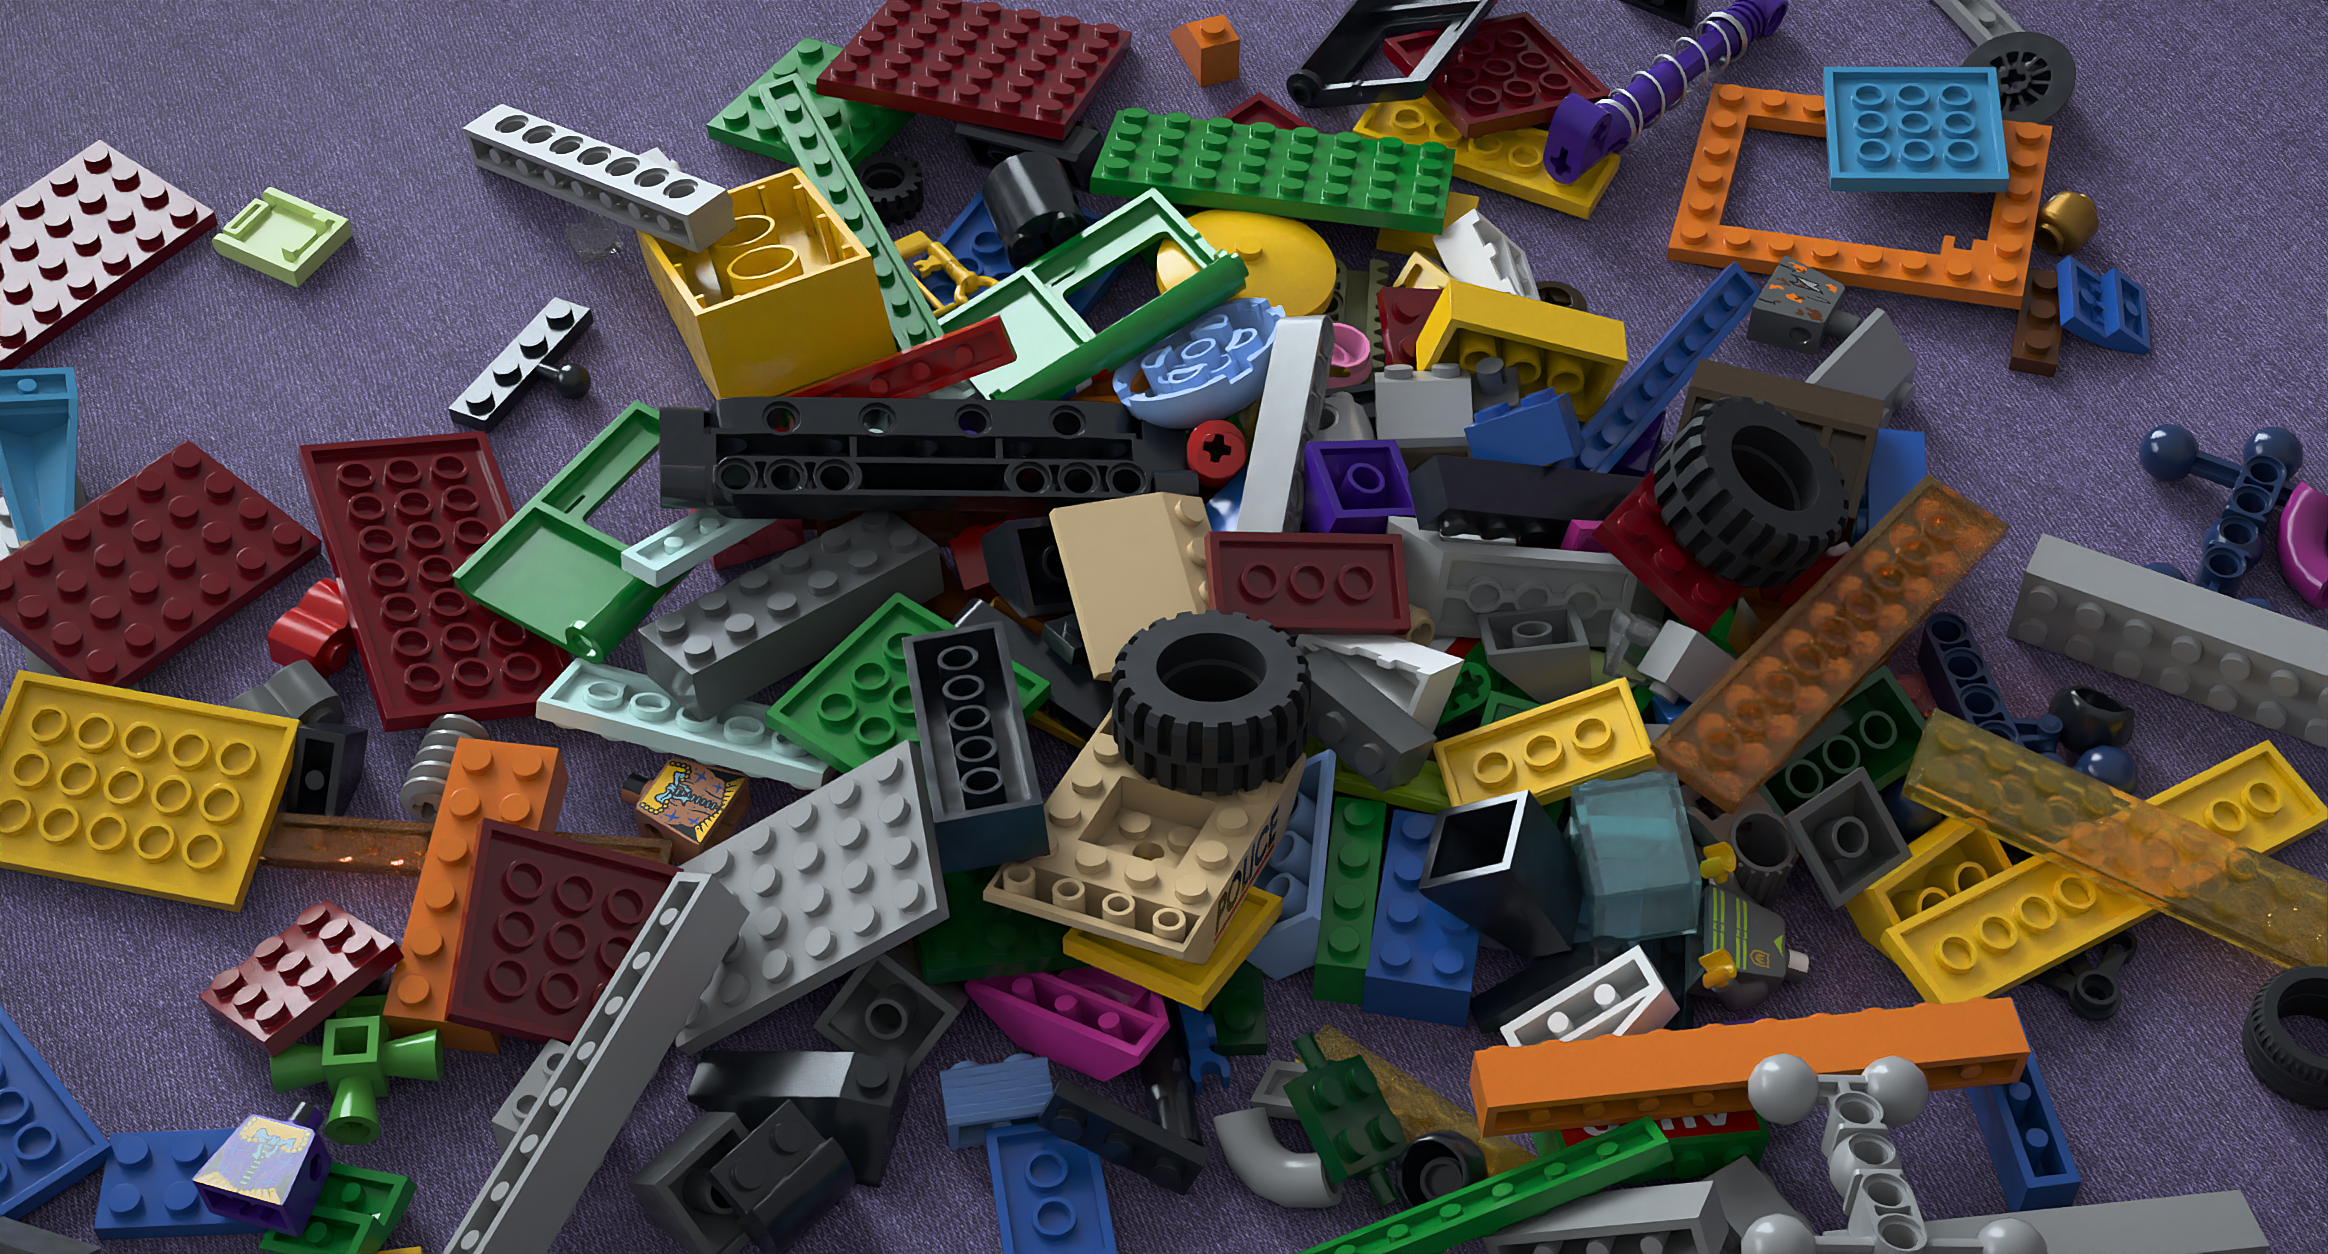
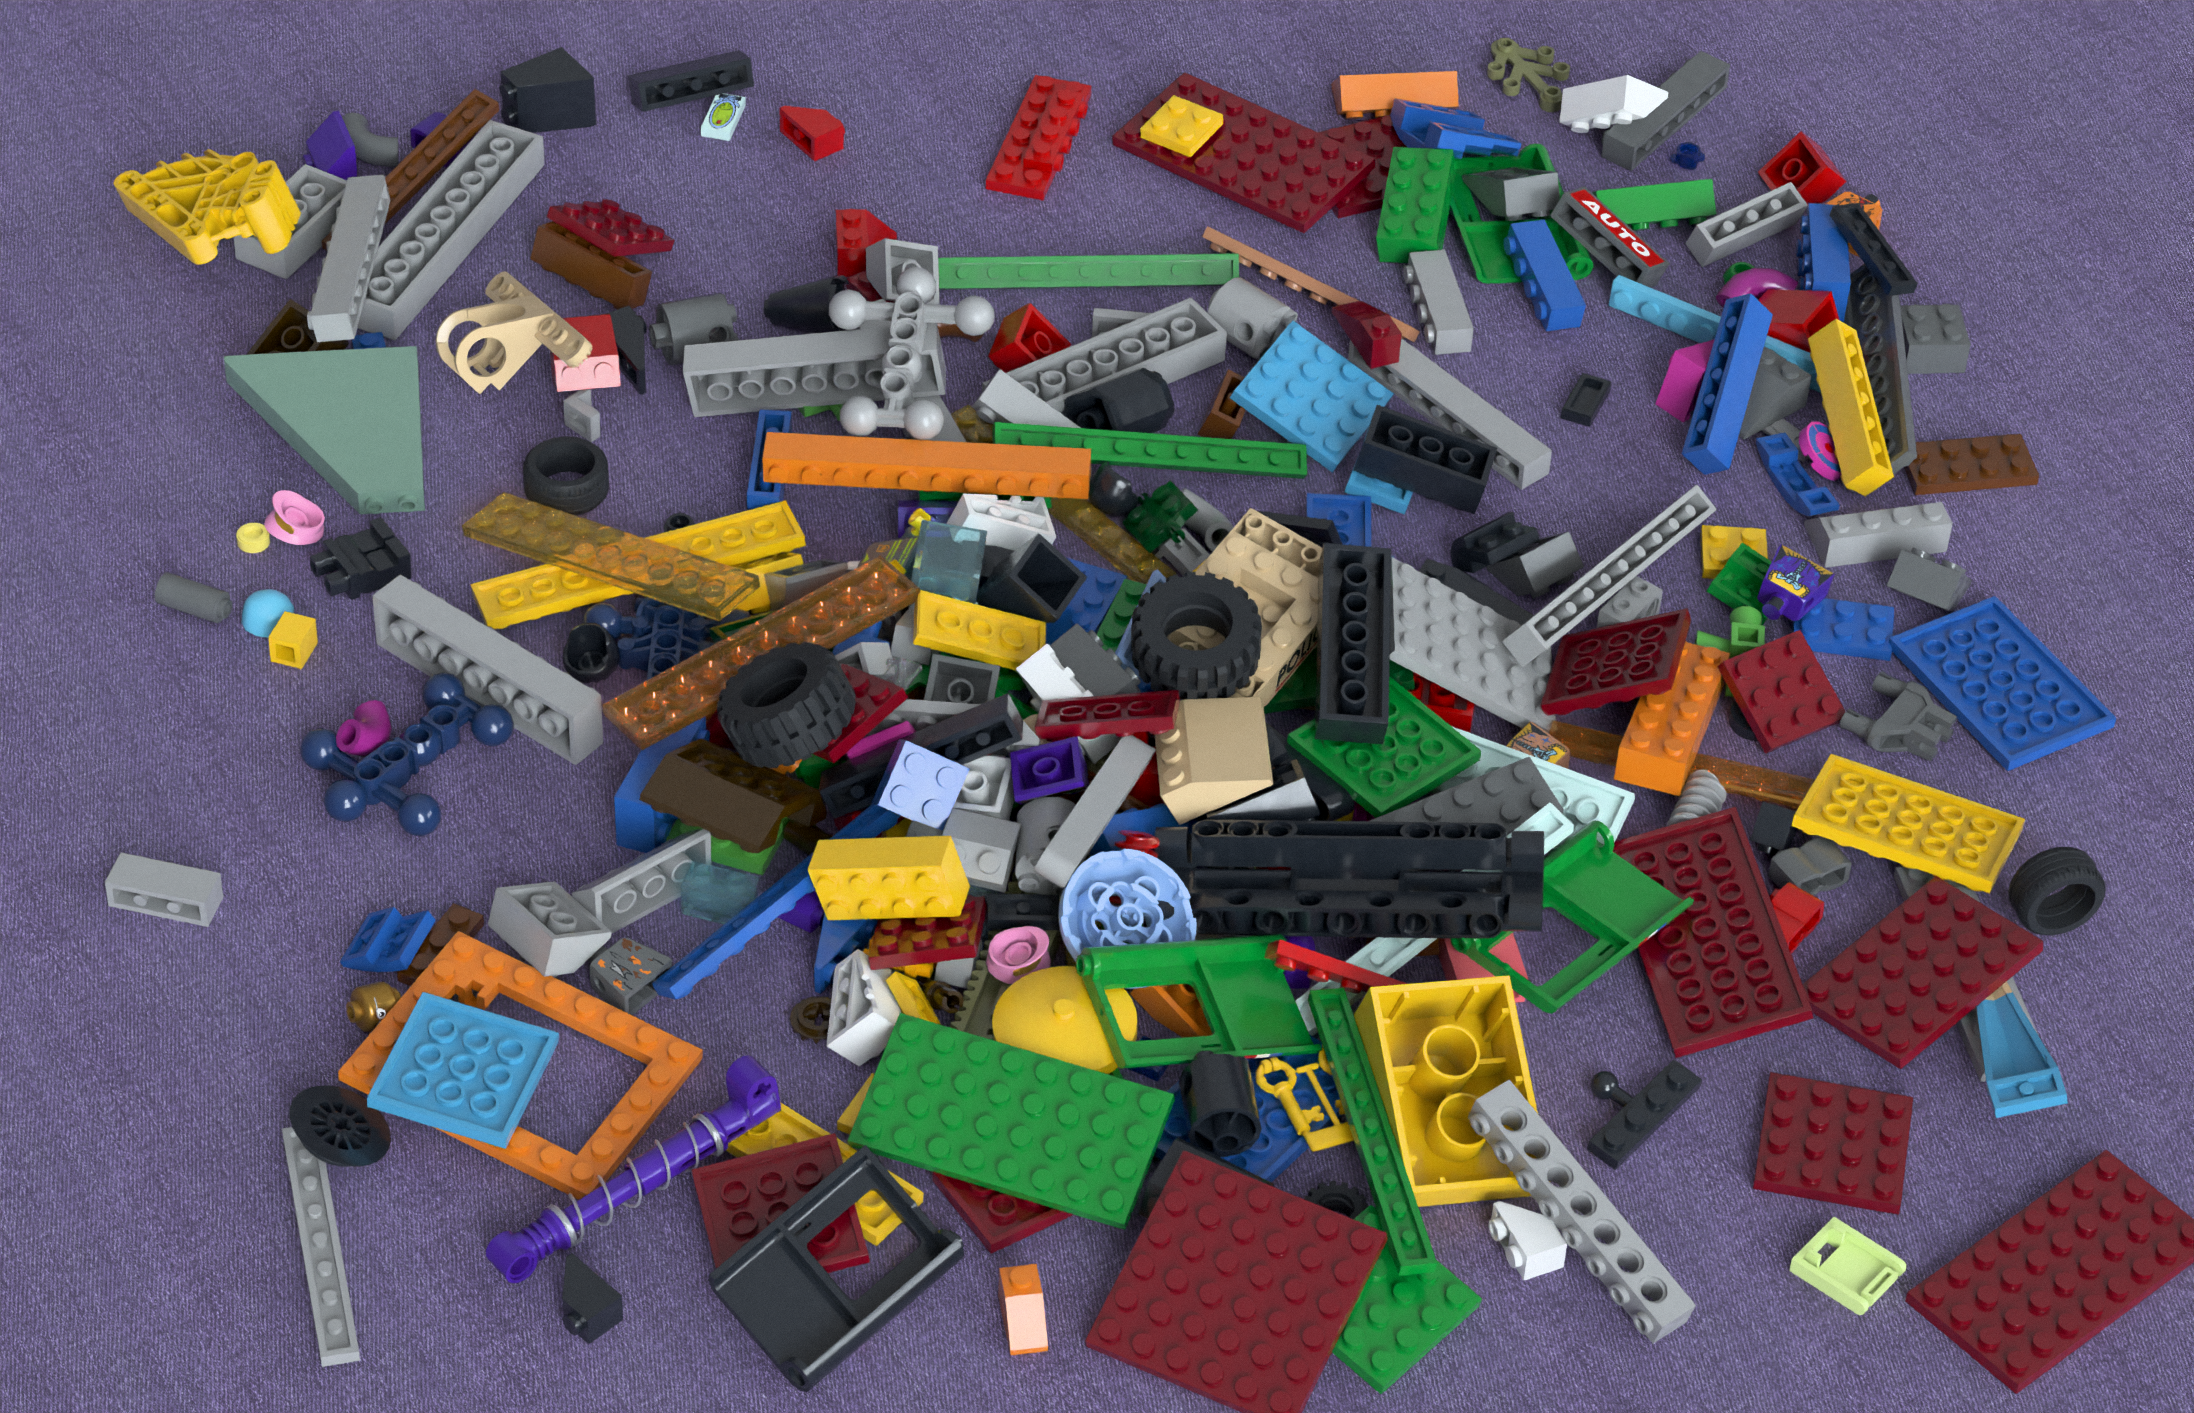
camera: 170 degrees left, 5 degrees down
(107, 996) = (1907, 725): none -> dark grey connector
(284, 373) = (1833, 1143): none -> dark red plate
(1936, 322) = (546, 927): none -> light grey slope

